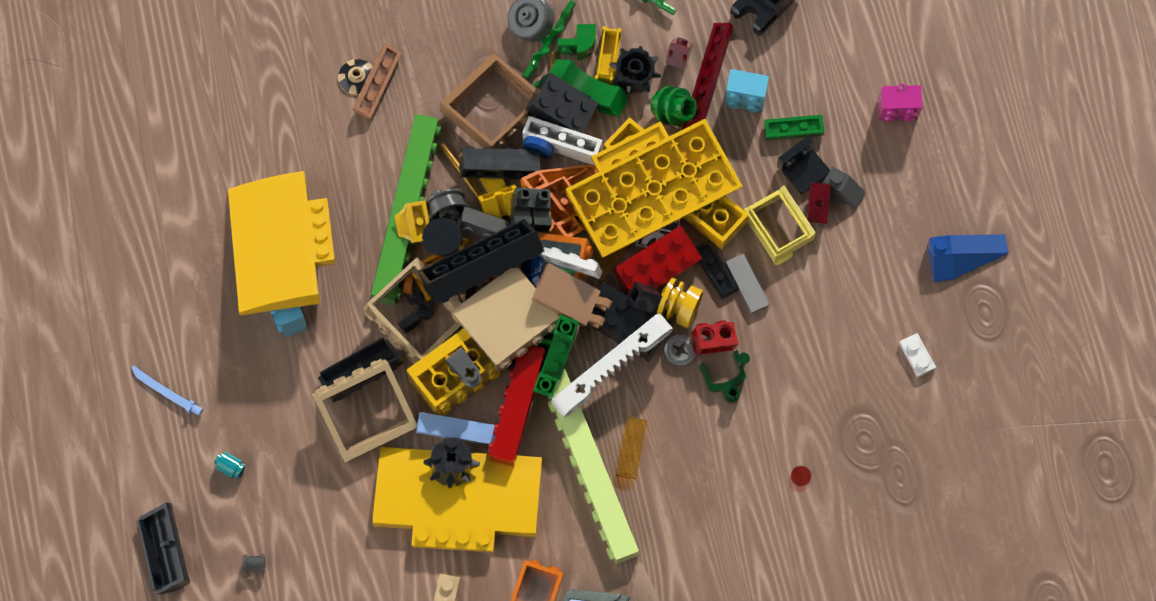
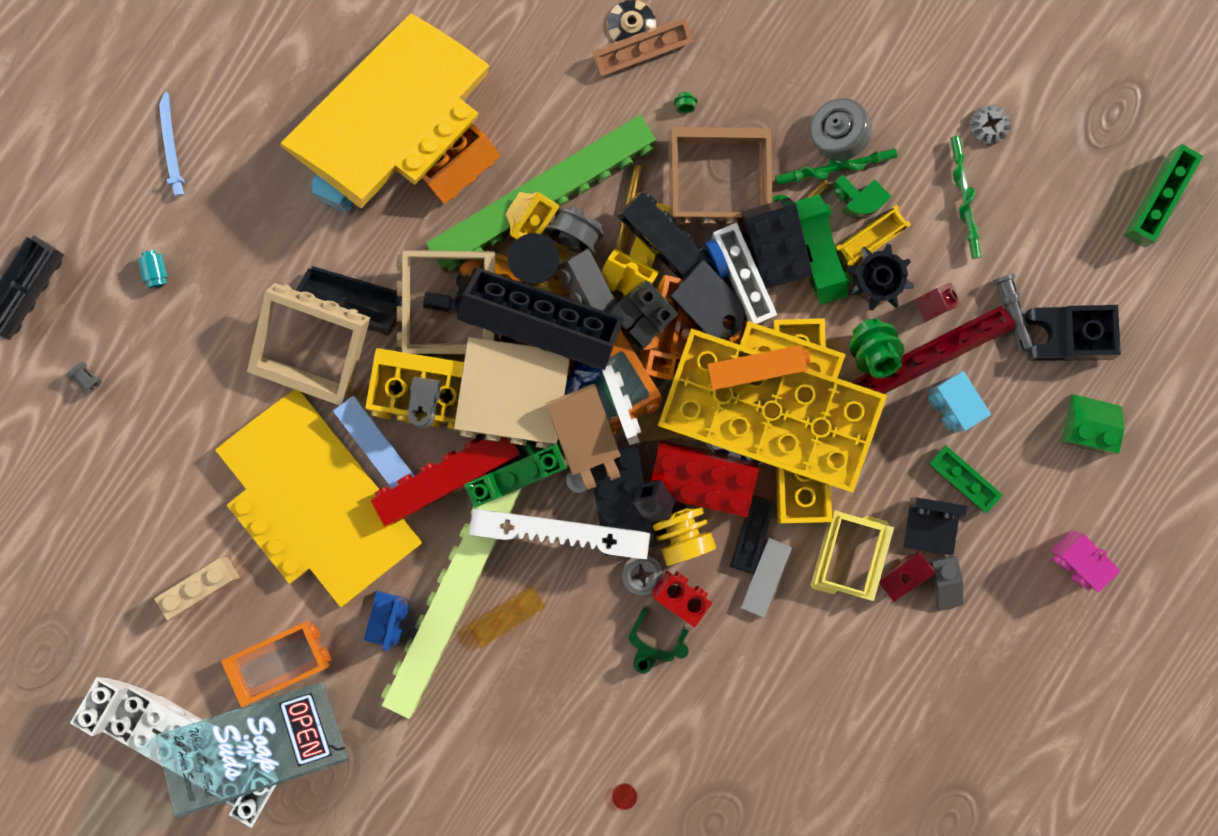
camera: 45 degrees right, 15 degrees up
(346, 237) = (461, 164): none -> orange slope
(432, 87) = (685, 102): none -> green plate
(451, 462) = (333, 484): black brick -> none
(557, 170) = (707, 301): none -> black tile
(568, 516) = (385, 619): none -> blue bracket
(590, 337) = (575, 483): none -> white tile
(622, 168) = (758, 367): none -> orange piece
(715, 15) = (1011, 300): none -> dark grey pin
(829, 34) = (1094, 425): none -> green slope
(917, 355) = (843, 800): white plate -> none
(959, 254) = (982, 753): blue wedge -> none

